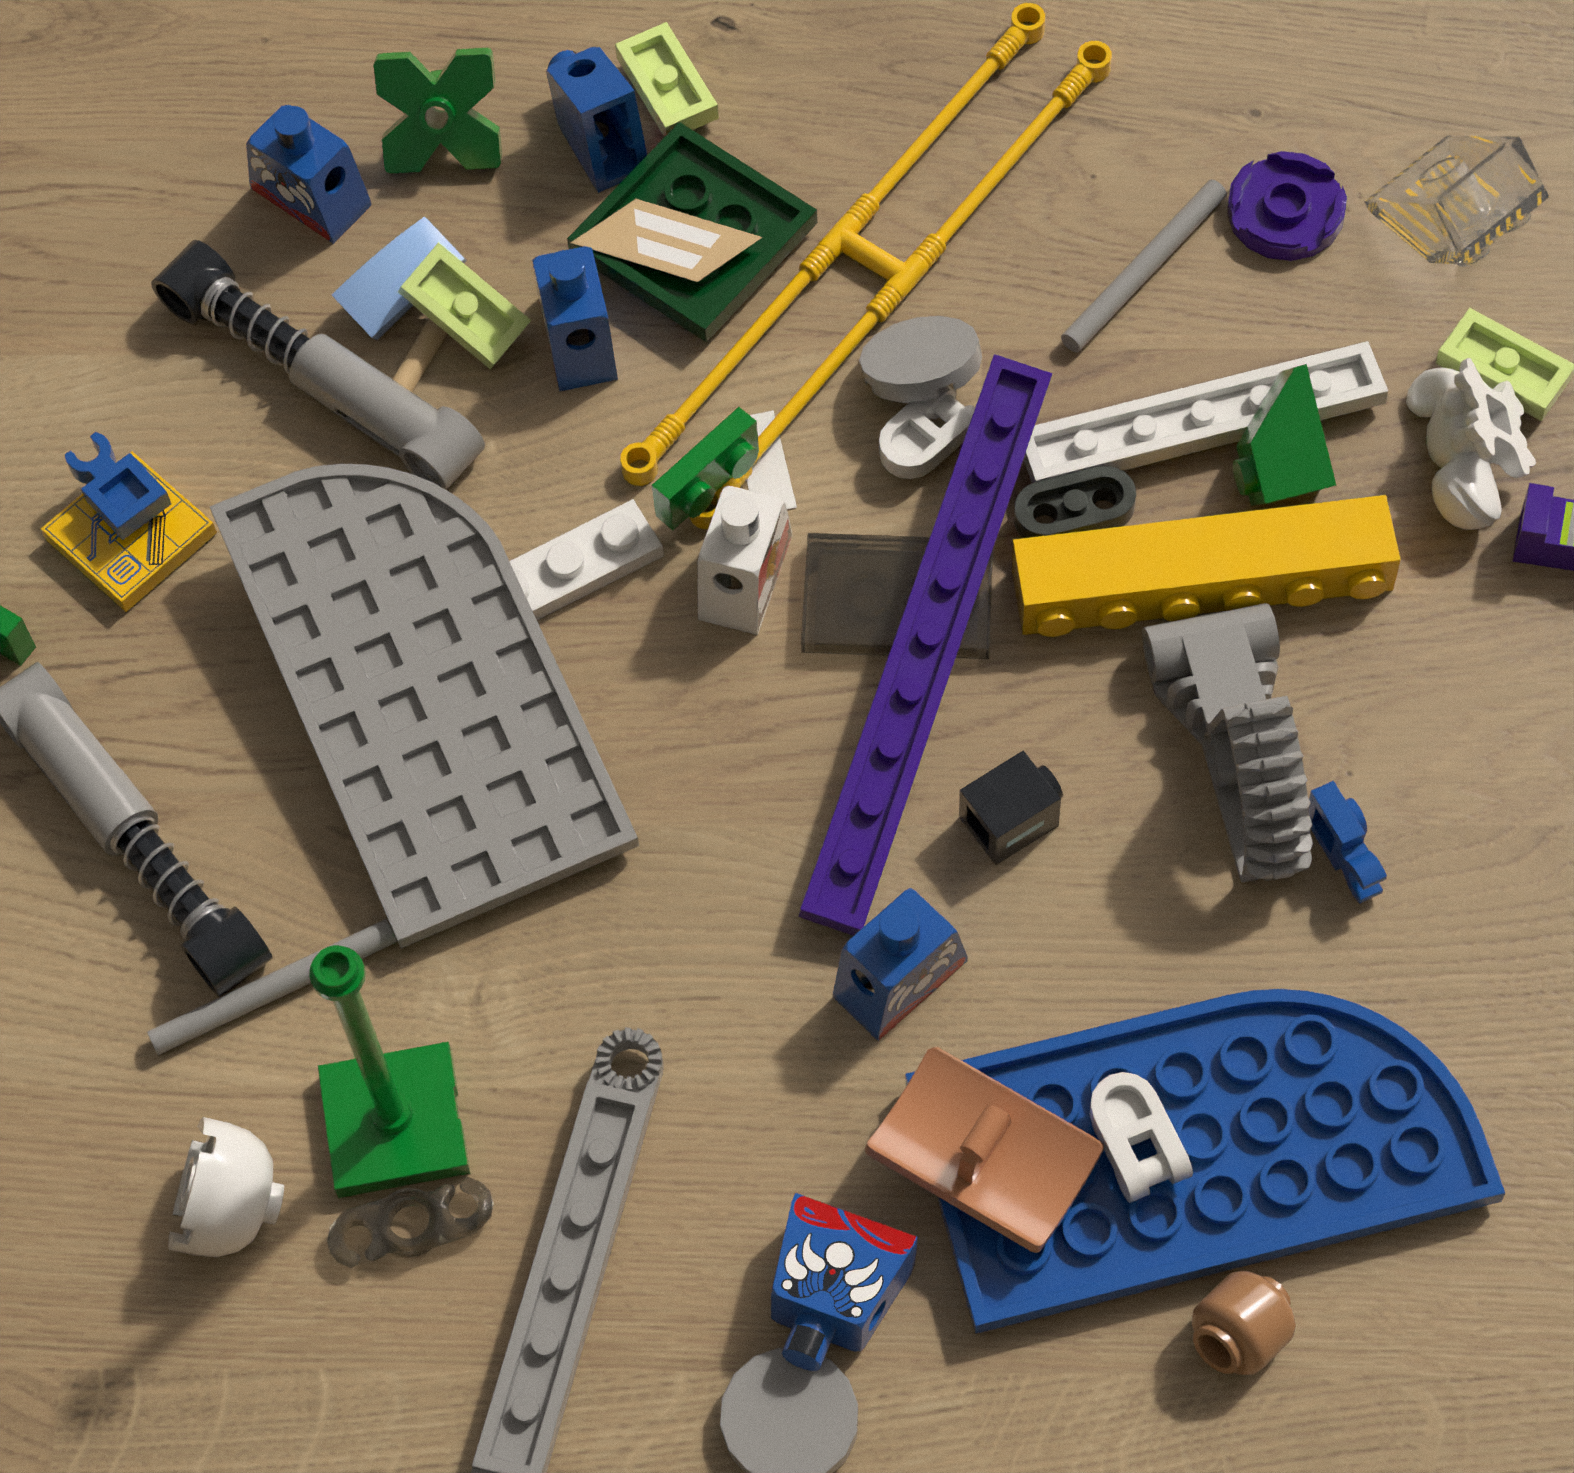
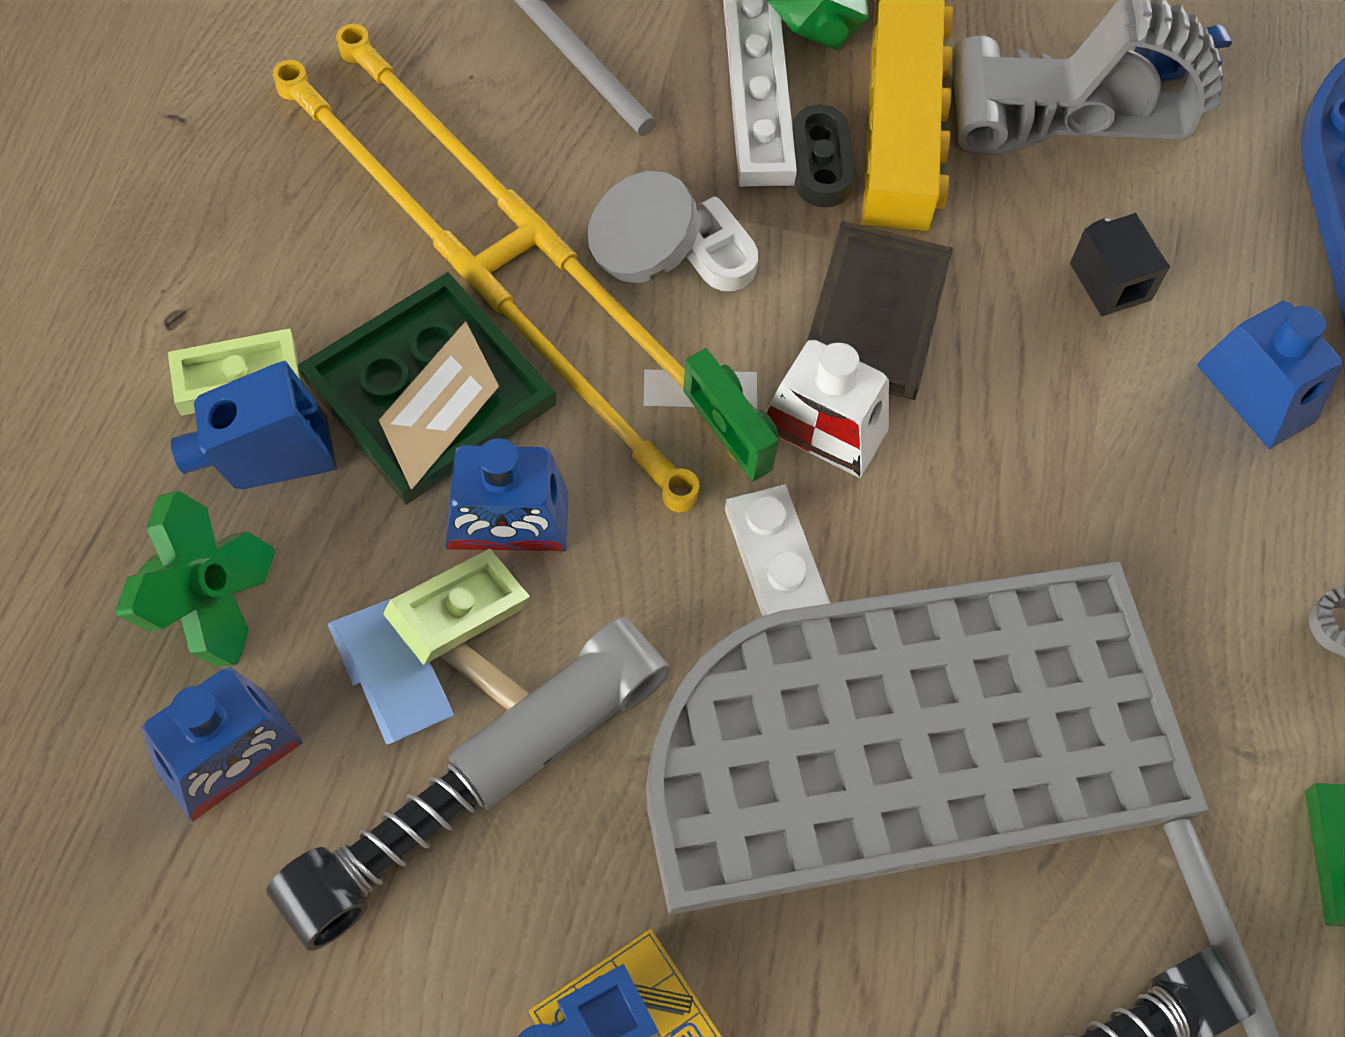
camera: 85 degrees left, 0 degrees up
(925, 648) = (957, 284): dark purple plate -> none

